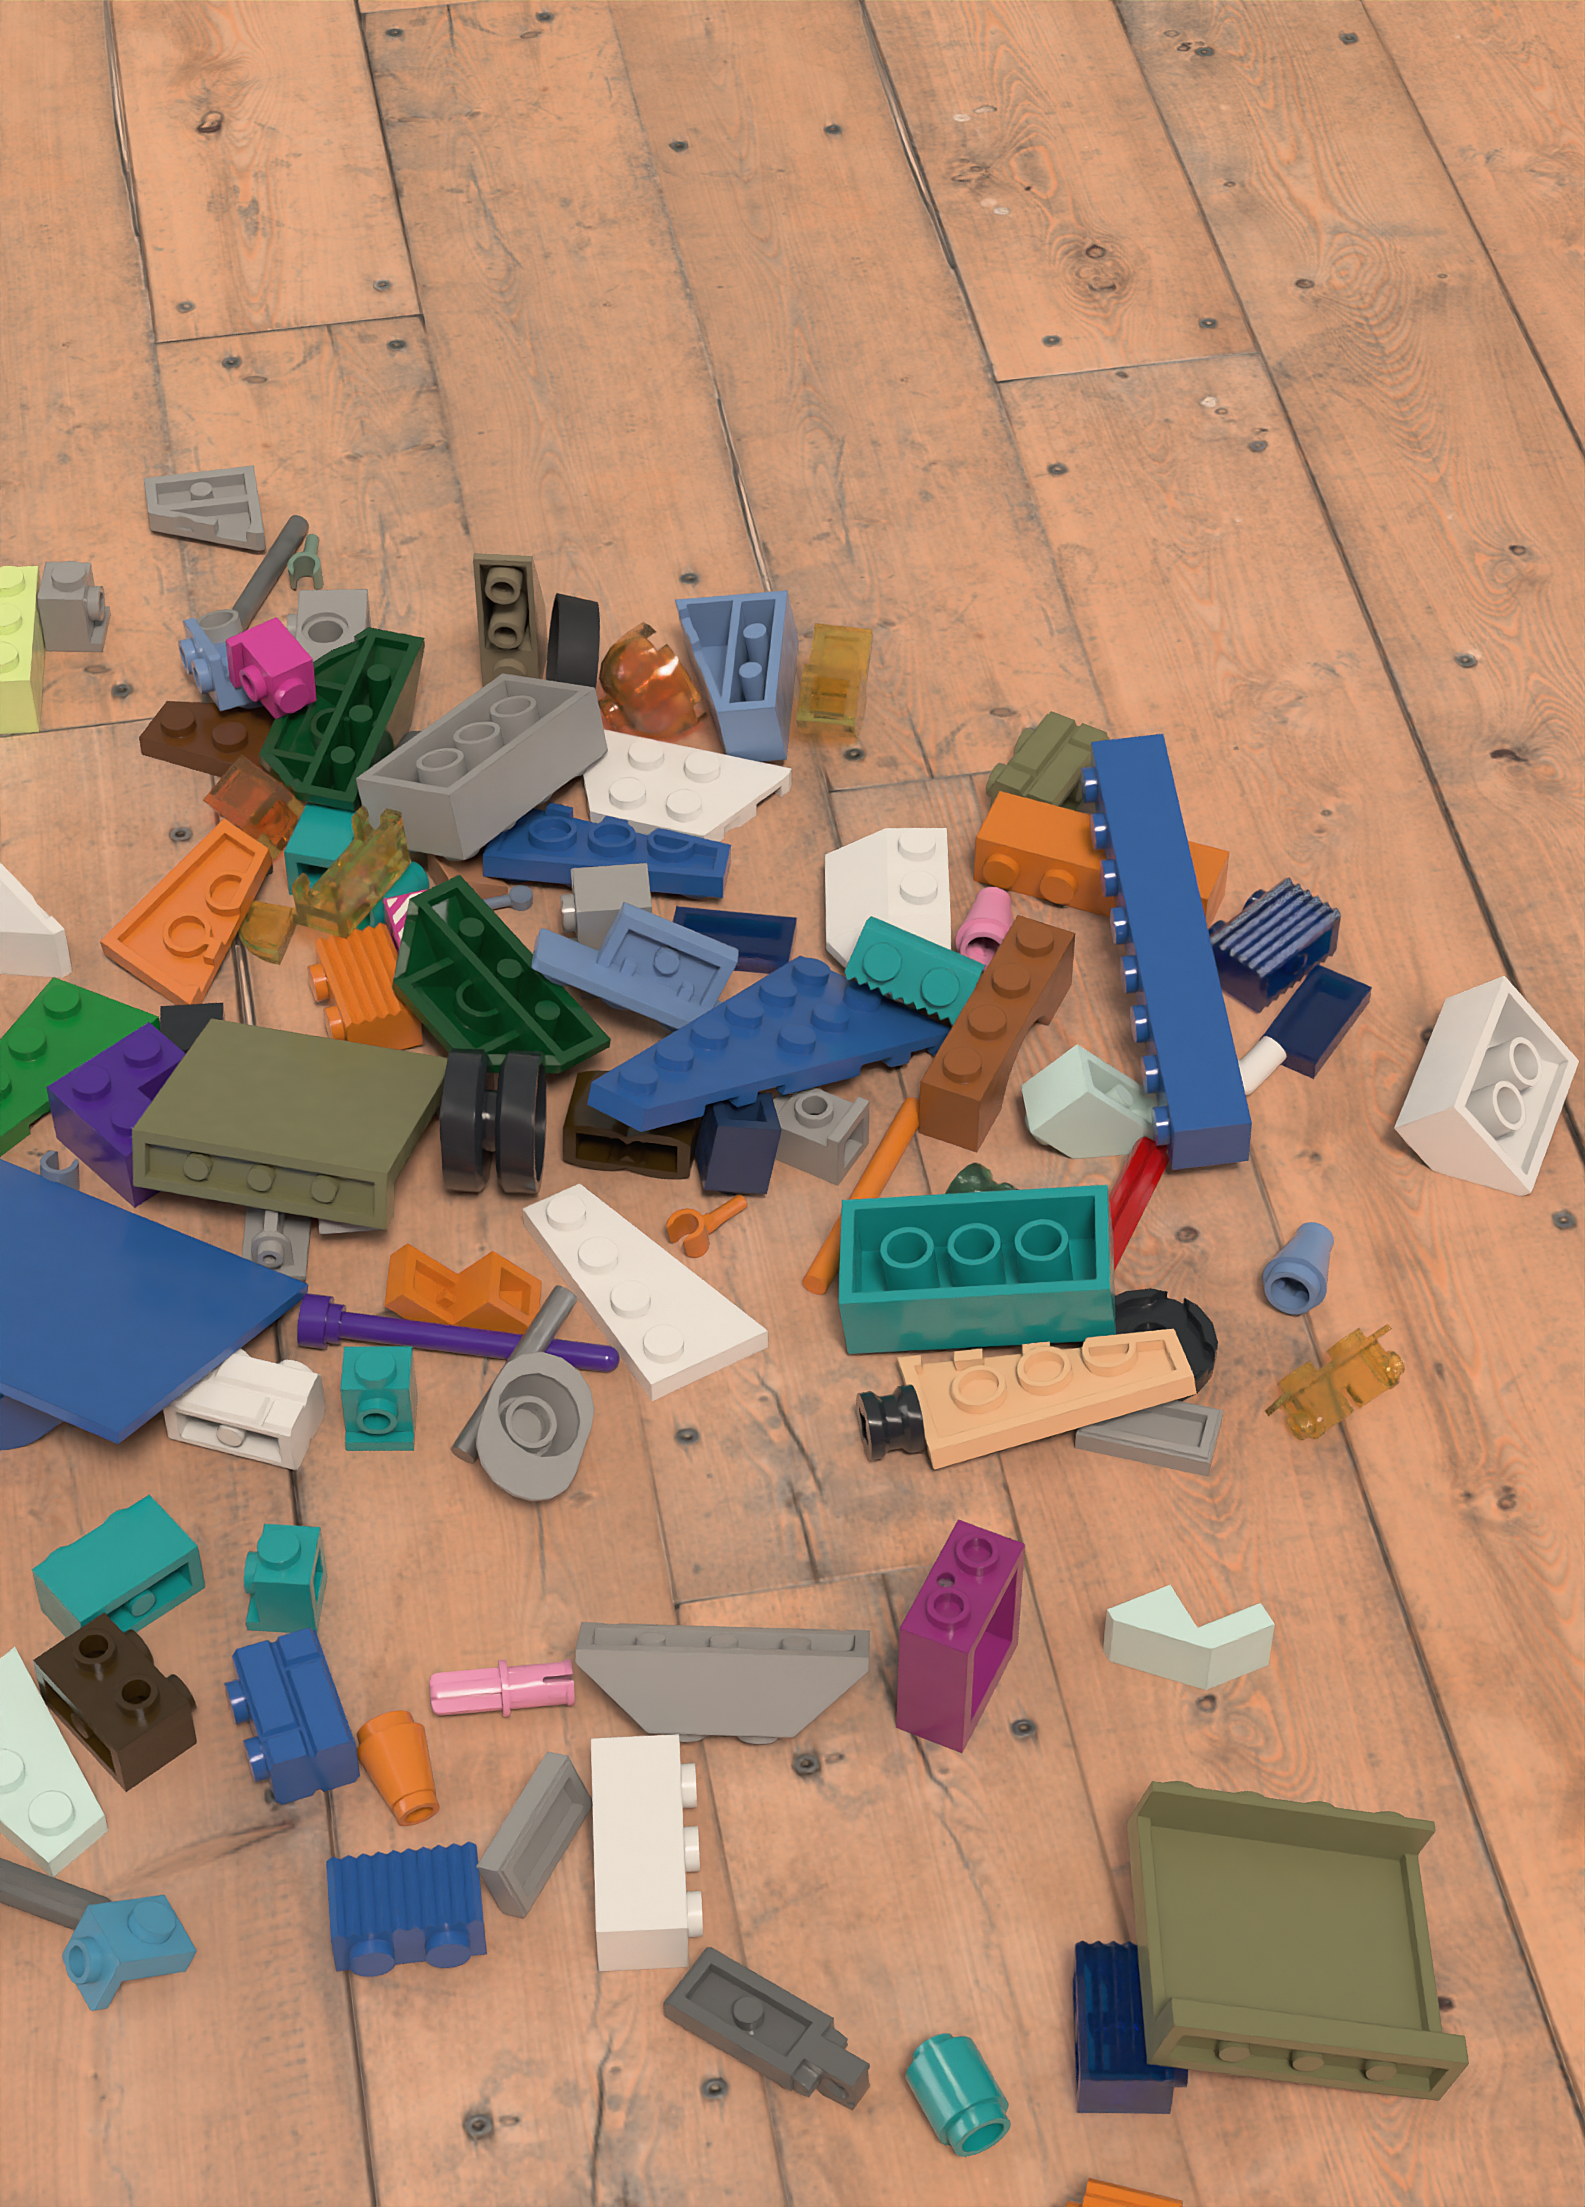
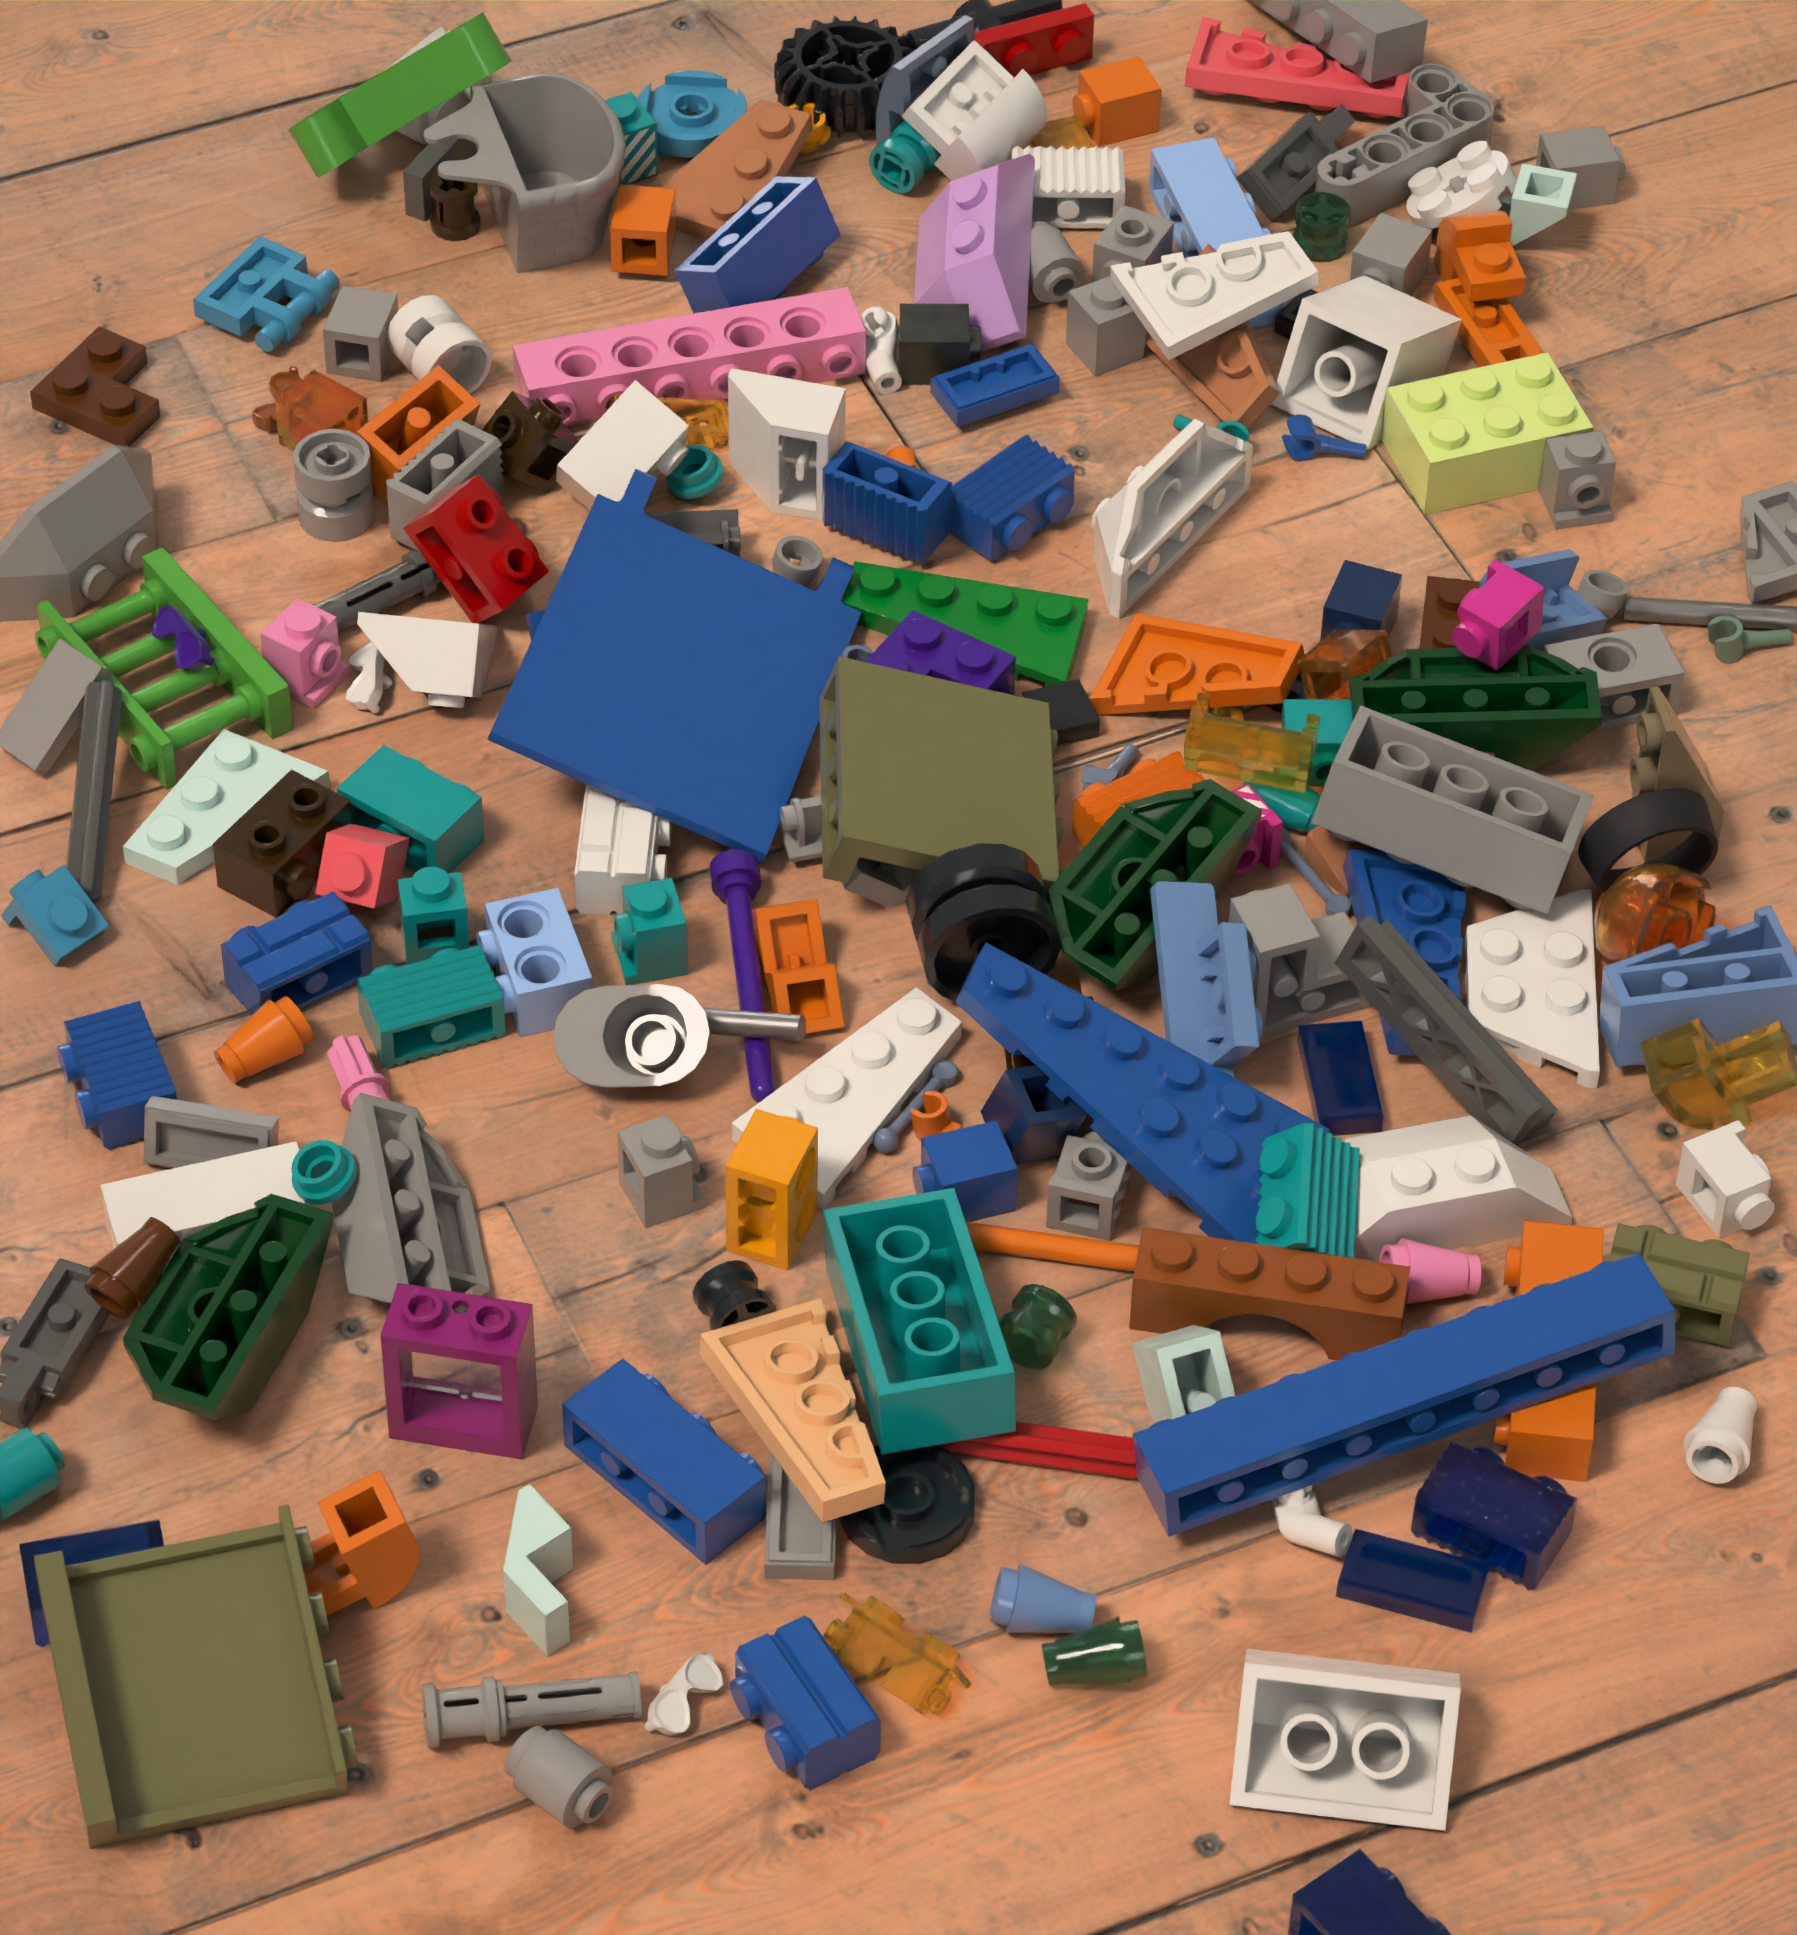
camera: 75 degrees right, 0 degrees up
(168, 788) = (1362, 600): none -> dark blue brick
(194, 1624) = (362, 865): none -> coral brick
(296, 1018) = (1114, 770): none -> sand blue hand
(382, 1500) = (534, 958): none -> light blue brick
(405, 1604) = (431, 1005): none -> teal brick
(632, 1215) = (943, 1076): none -> sand blue hinge
(654, 1690) = (323, 1172): none -> teal plate
(706, 1429) = (659, 1171): none -> light grey brick
(735, 1916) = (132, 1269): none -> reddish brown cone
(741, 836) = (1443, 1031): none -> dark grey fence
(781, 1213) = (973, 1163): none -> blue brick
(781, 1348) = (771, 1189): none -> light orange brick
(809, 1839) = (229, 1307): none -> dark green wedge
(945, 720) = (1725, 1181): none -> white brick
(1085, 1505) = (665, 1460): none -> blue brick
(1141, 1745) = (368, 1547): none -> orange brick
(1217, 790) = (1722, 1438): none -> white cone
(1346, 1702) = (494, 1708): none -> light grey pin
(1362, 1565) = (670, 1708): none -> white piece
(1367, 1236) = (1097, 1655): none -> clear green cone
(1388, 1456) = (805, 1703): none -> blue brick
(1441, 1662) = (560, 1776): none -> light grey brick

